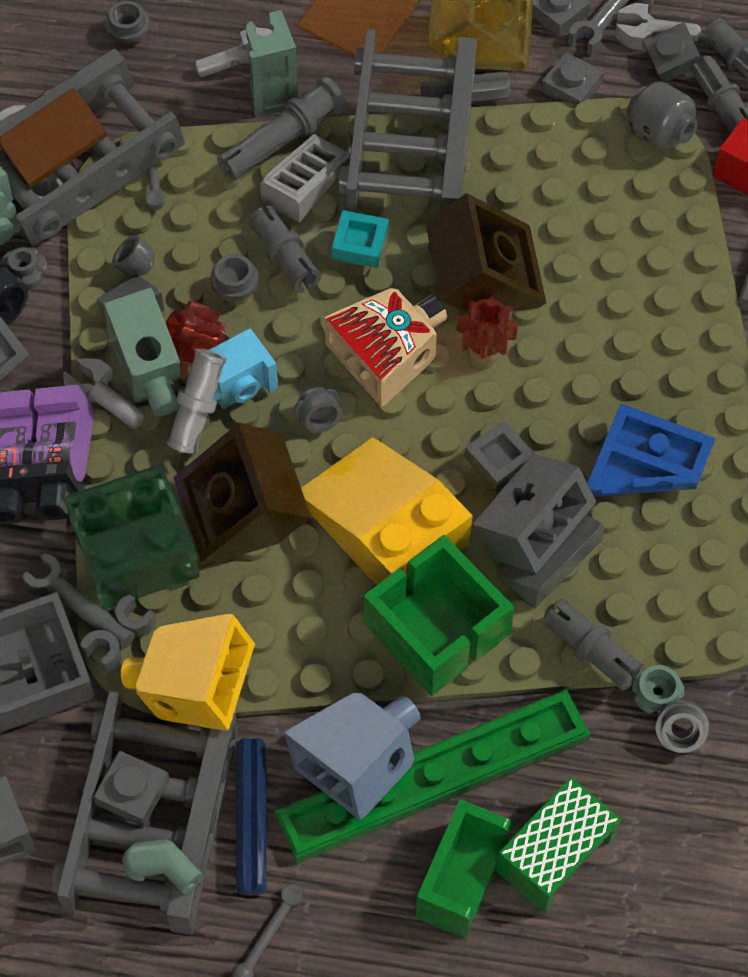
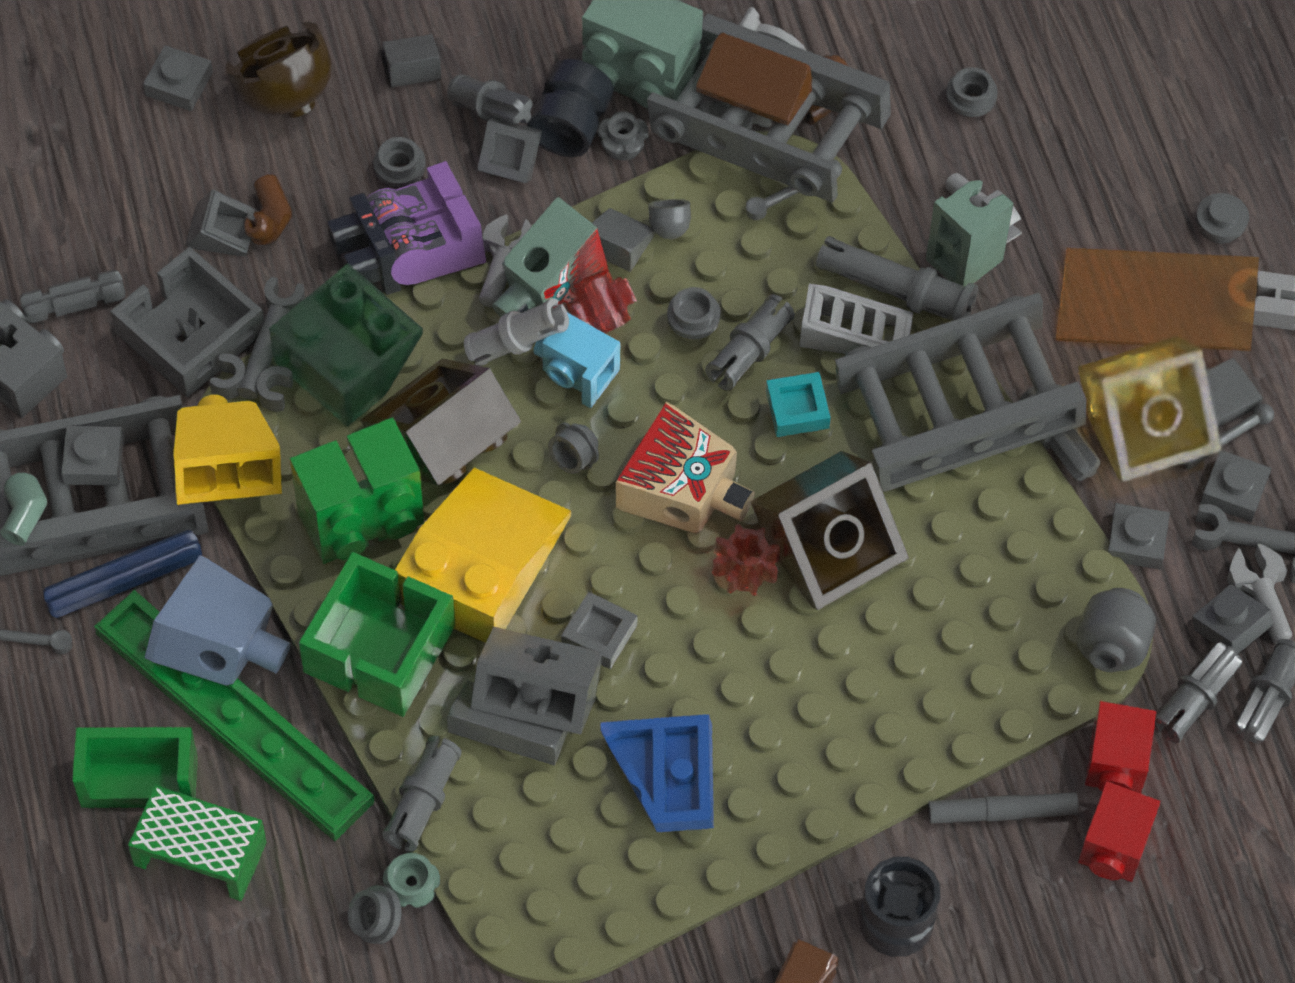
camera: 65 degrees right, 0 degrees up
(296, 576) = (349, 513): none -> green piece

